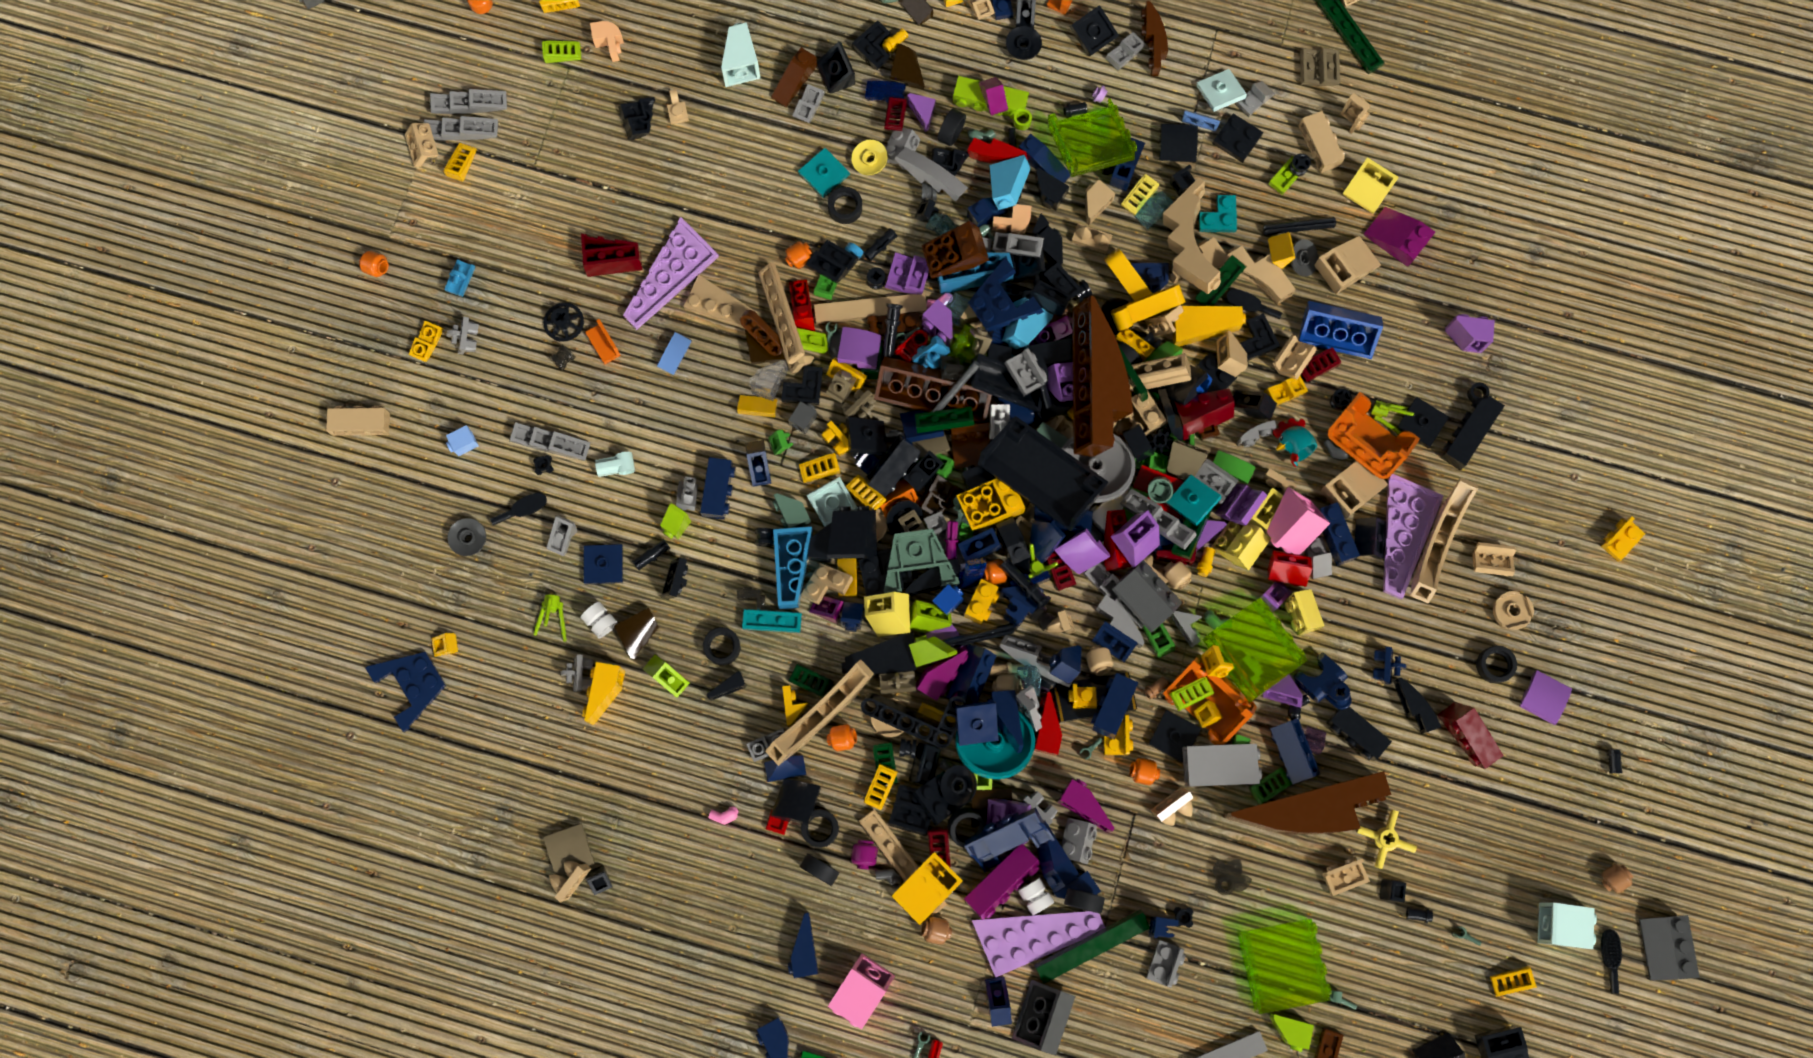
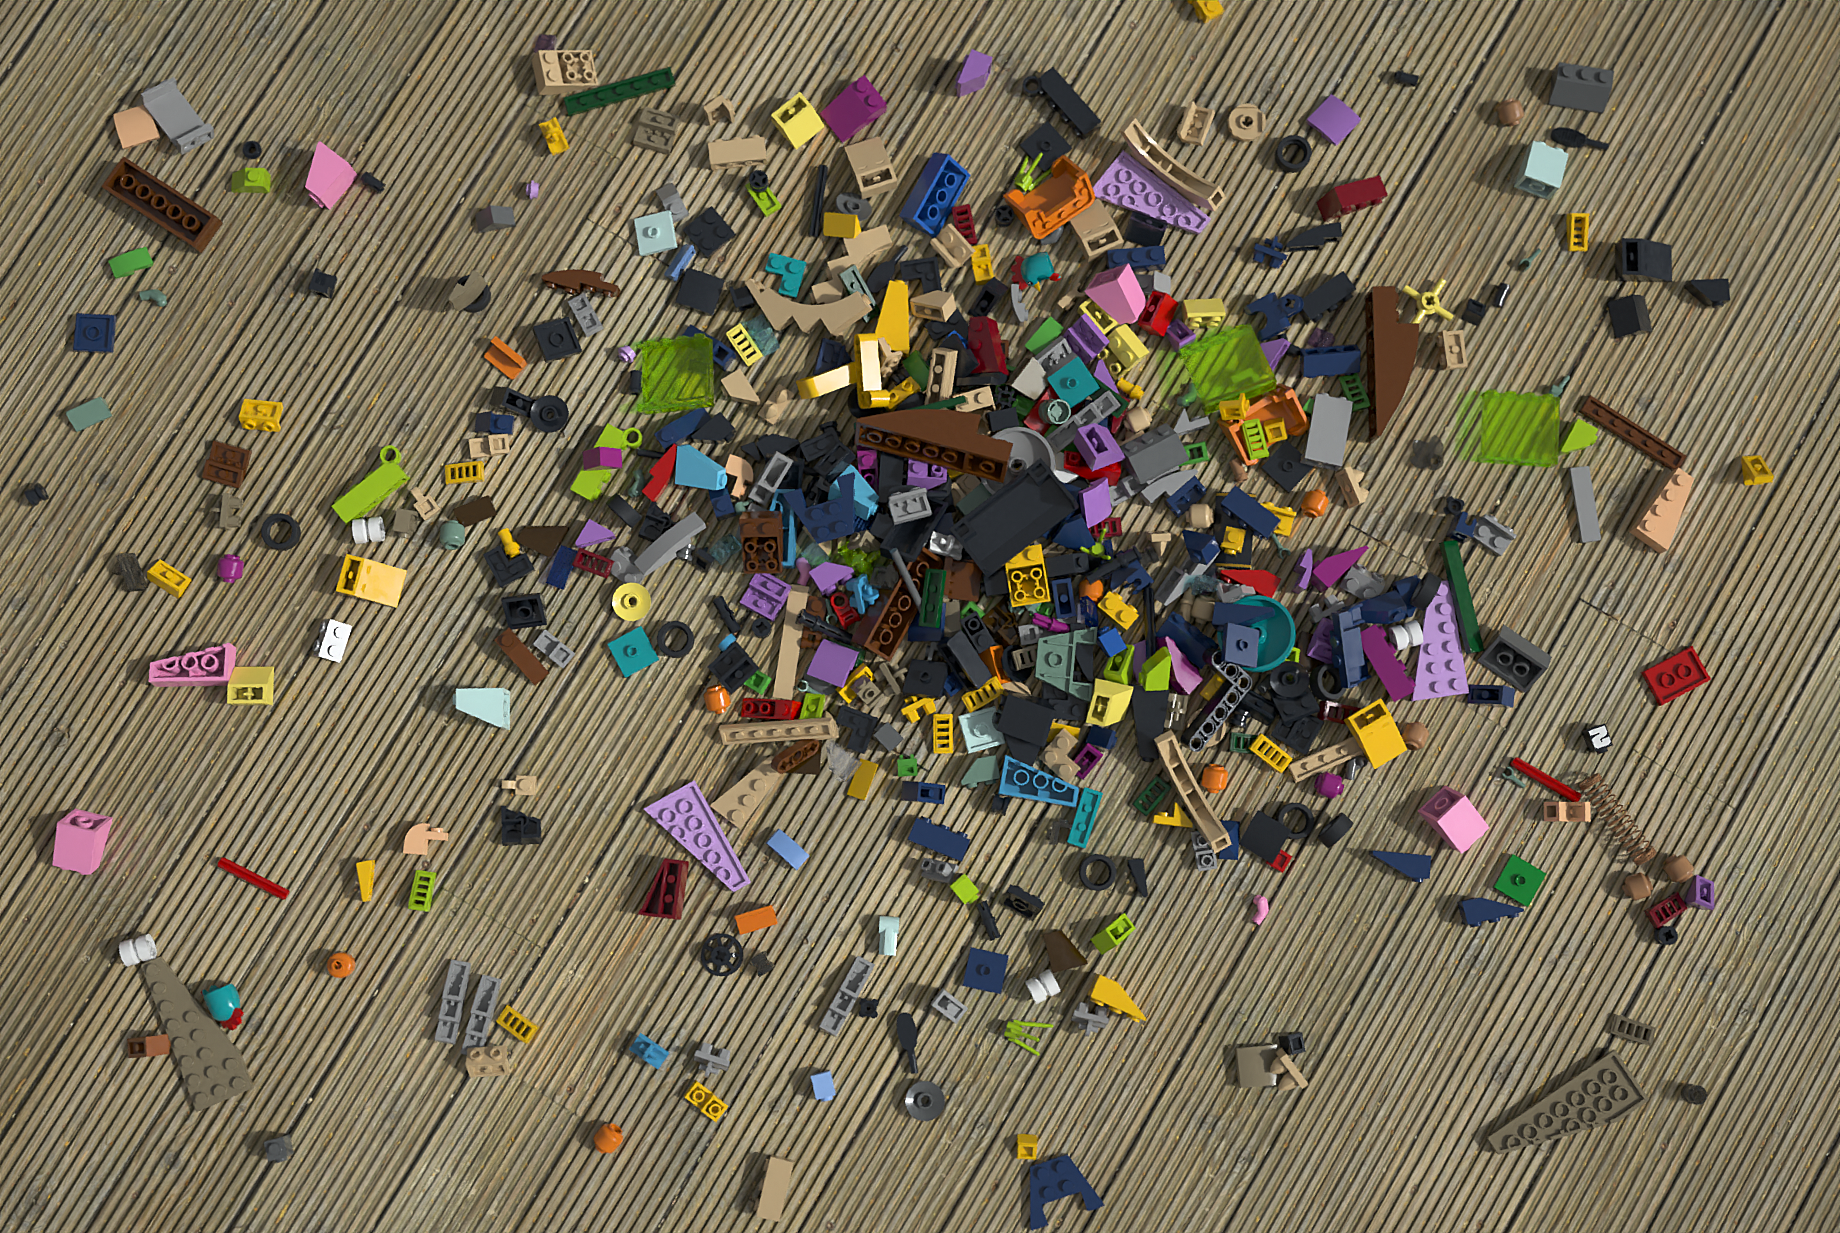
camera: 80 degrees left, 5 degrees up
(1077, 772) = (1304, 568): none -> medium lavender slope

